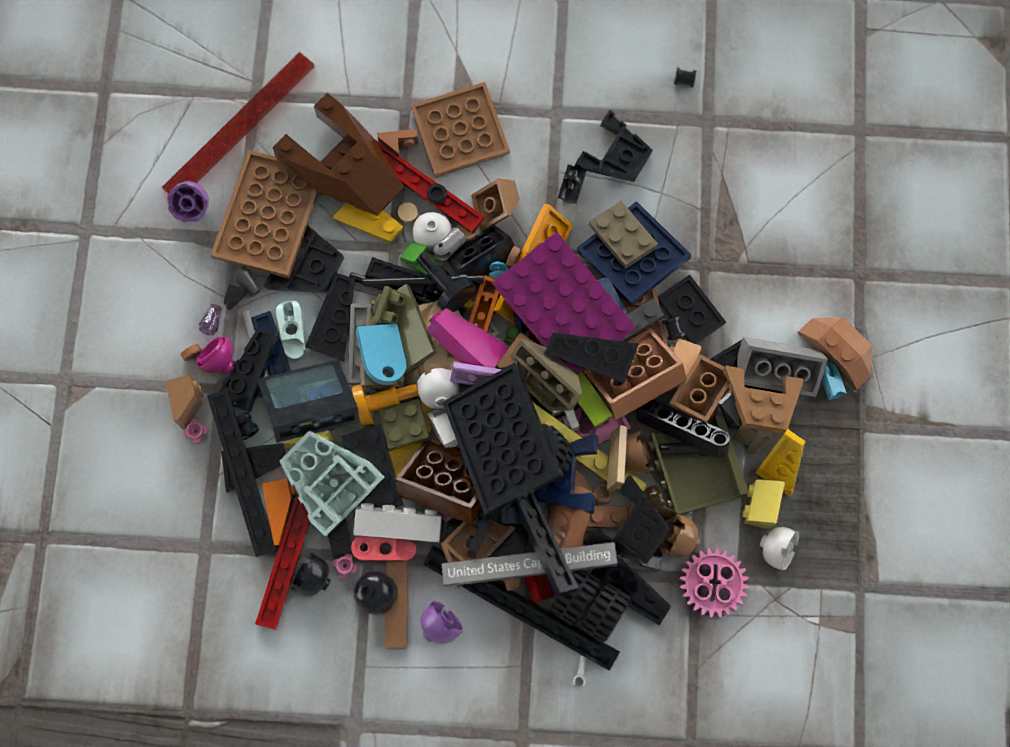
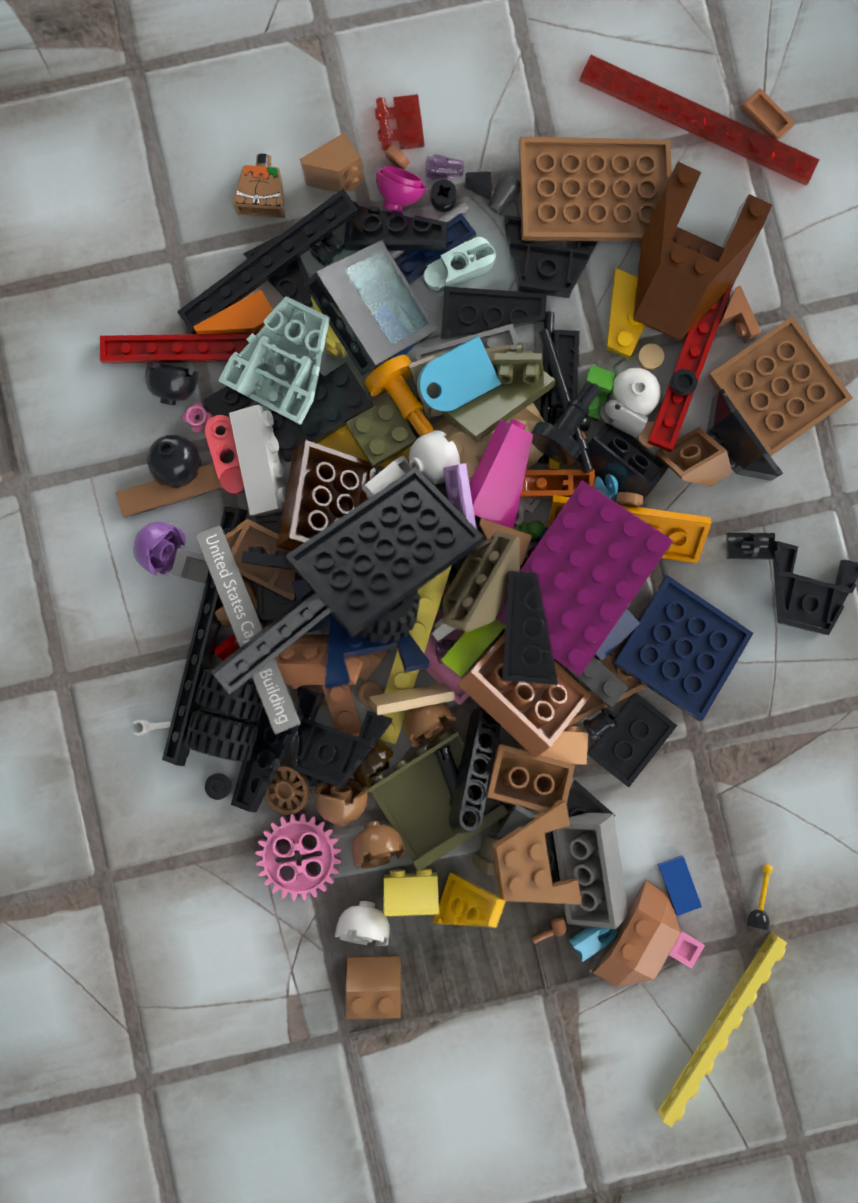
camera: 70 degrees right, 10 degrees up
(163, 336) = (408, 122): none -> clear red plate
(180, 462) = (260, 190): none -> medium nougat torso
(188, 201) = (580, 88): medium lavender cylinder -> none
(195, 425) = (305, 188): bright pink plate -> none
(234, 330) = (441, 201): none -> black wheel
(252, 77) = (767, 115): none -> nougat tile
(463, 602) = (190, 566): none -> light grey panel
(486, 170) = (743, 447): none -> black wedge
(623, 234) = (702, 628): dark tan plate -> none
(635, 631) = (226, 786): none -> black plate
(660, 577) = (287, 791): none -> medium nougat wheel
(720, 519) = (377, 845): none -> medium nougat cylinder
(807, 308) = (679, 885): none -> blue tile
(817, 403) = (558, 929): none -> nougat hand
(828, 553) = (373, 987): none -> medium nougat slope
(845, 259) = (758, 917): none -> hinge
(856, 316) = (687, 949): none -> bright pink plate
(919, 309) = (717, 1036): none -> light yellow plate

